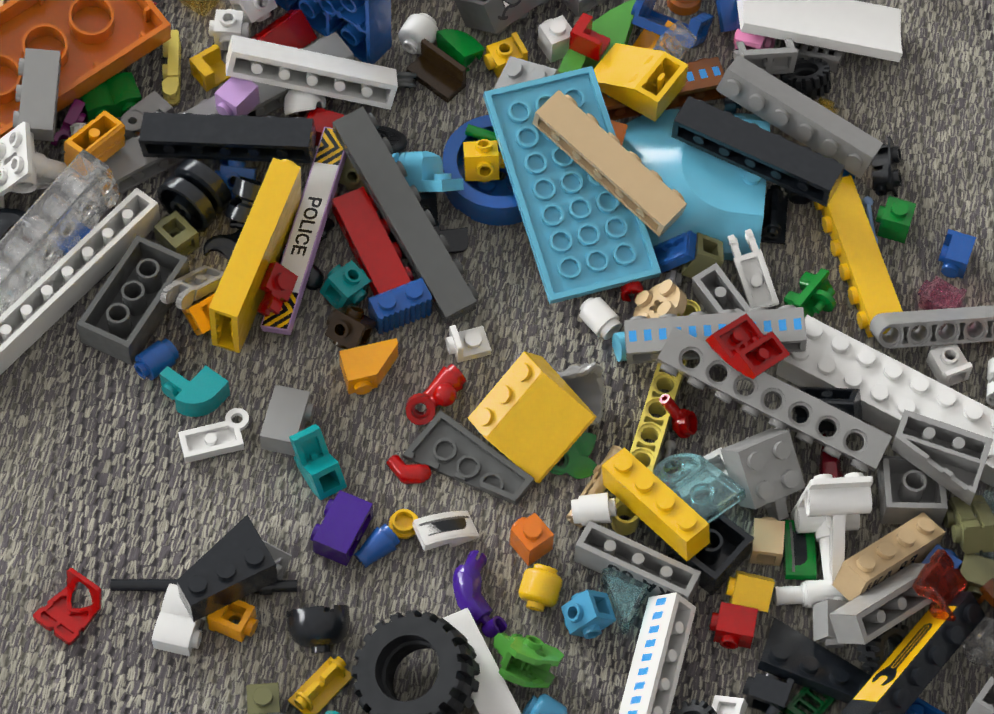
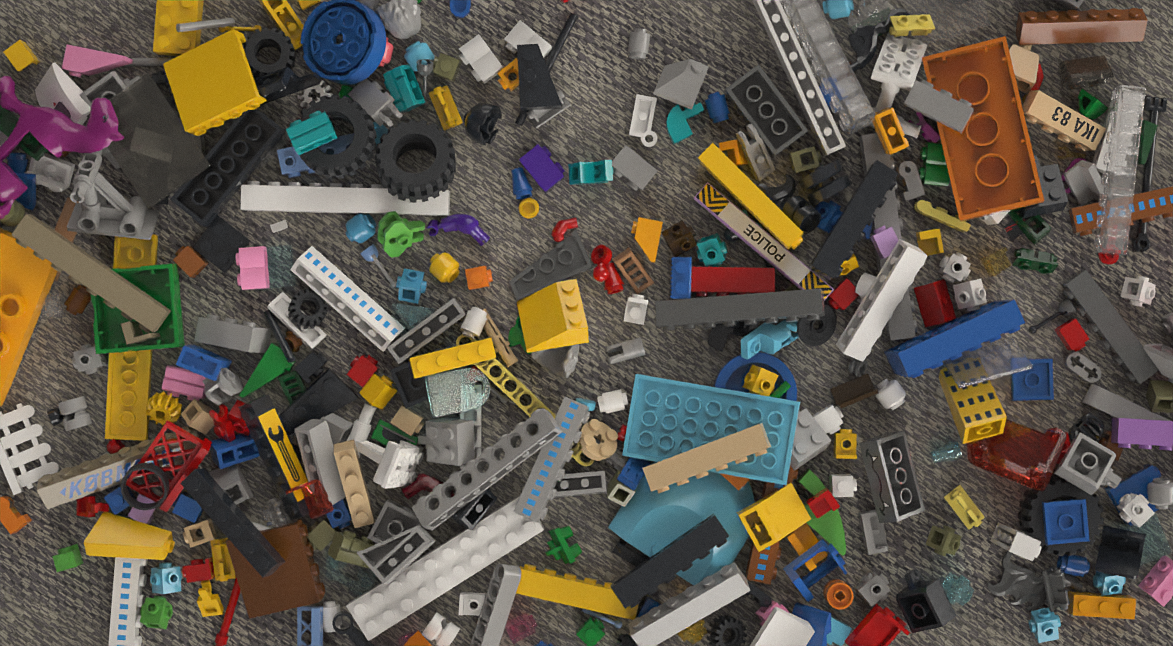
camera: 120 degrees right, 30 degrees up
(115, 485) = (638, 44): none -> light grey brick
(142, 406) = (681, 82): none -> light grey slope
(230, 669) = (481, 59): none -> white brick
(278, 286) = (725, 202): red plate -> none
(411, 384) = (622, 257): none -> medium nougat slope
(445, 528) = (510, 230): white slope -> none
(459, 46) = (866, 416): green brick -> none
(481, 80) = (829, 419): none -> white brick
(523, 327) = (631, 349): none -> light grey hinge
(575, 687) = (371, 254): none -> hinge
(676, 40) = (786, 553): clear bracket -> none
(683, 421) = (513, 413): red plate -> none
(747, 348) = (520, 468): red slope -> none
(753, 273) = (593, 515): white hinge -> none
(770, 59) = (748, 613): light grey hinge -> none

